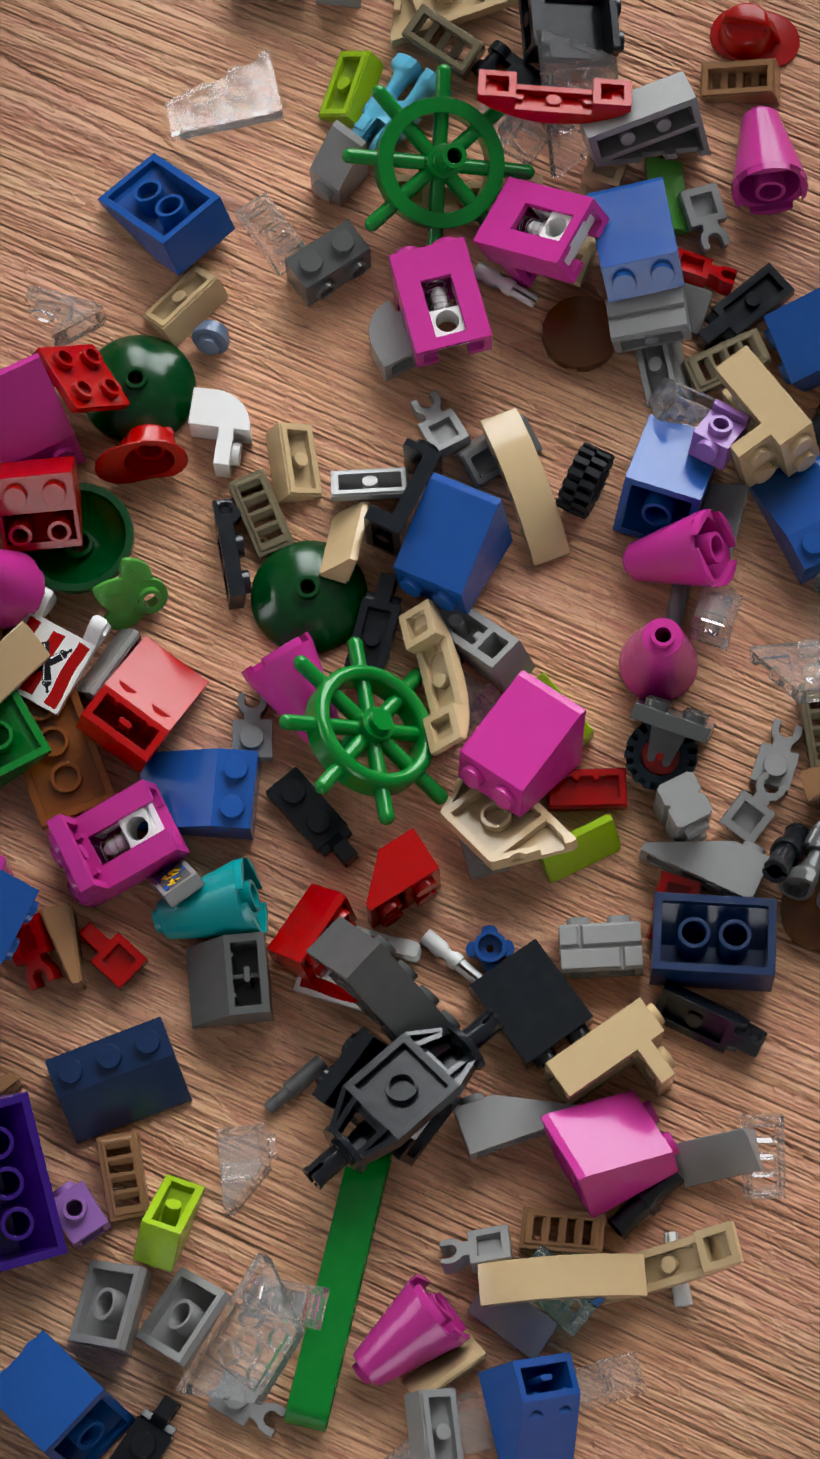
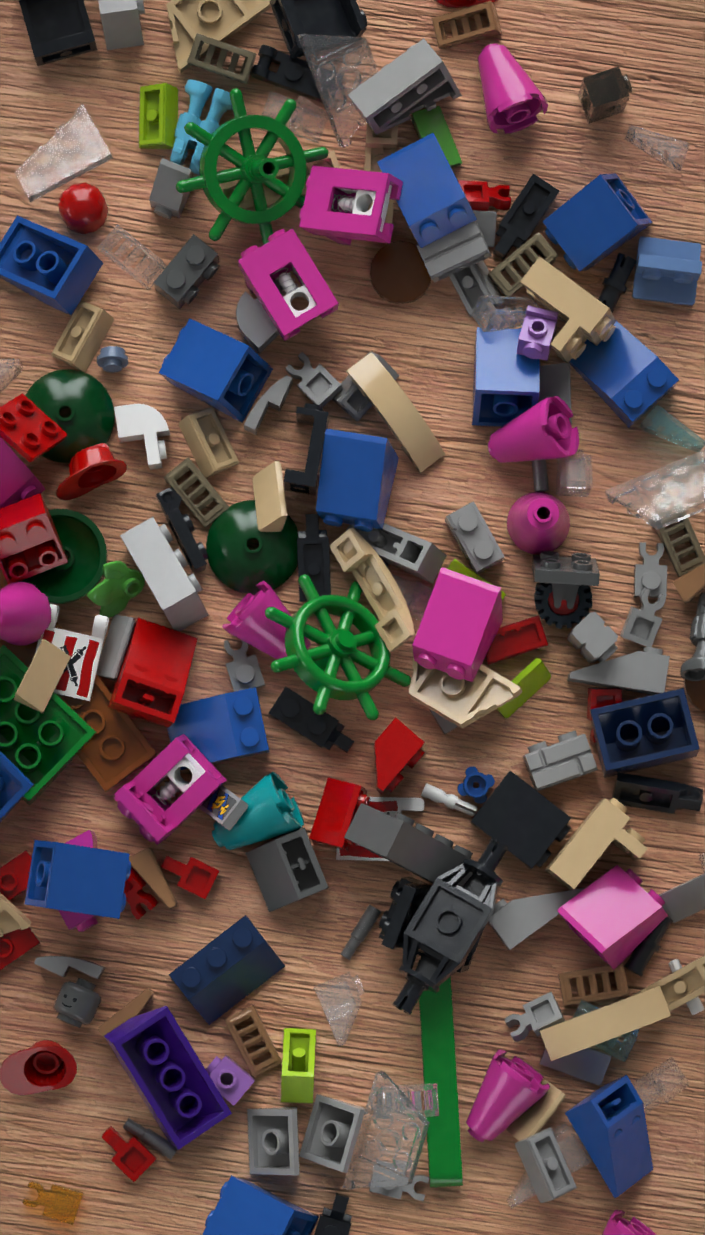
camera: 25 degrees left, 10 degrees up
(193, 597) = (165, 573): none -> wedge
(232, 164) = (83, 208): none -> red hair
(328, 381) = (216, 369): none -> blue slope
(369, 484) = (275, 446): light grey slope -> none
(385, 431) = (273, 398): none -> light grey slope
(506, 285) = (319, 245): white pin -> none
(554, 104) = (330, 94): red slope -> none
(575, 656) = (474, 538): none -> light grey brick
(585, 480) = (442, 396): black tyre -> none
(705, 211) = (469, 143): light grey plate -> none
(785, 853) = (679, 648): black pin -> none

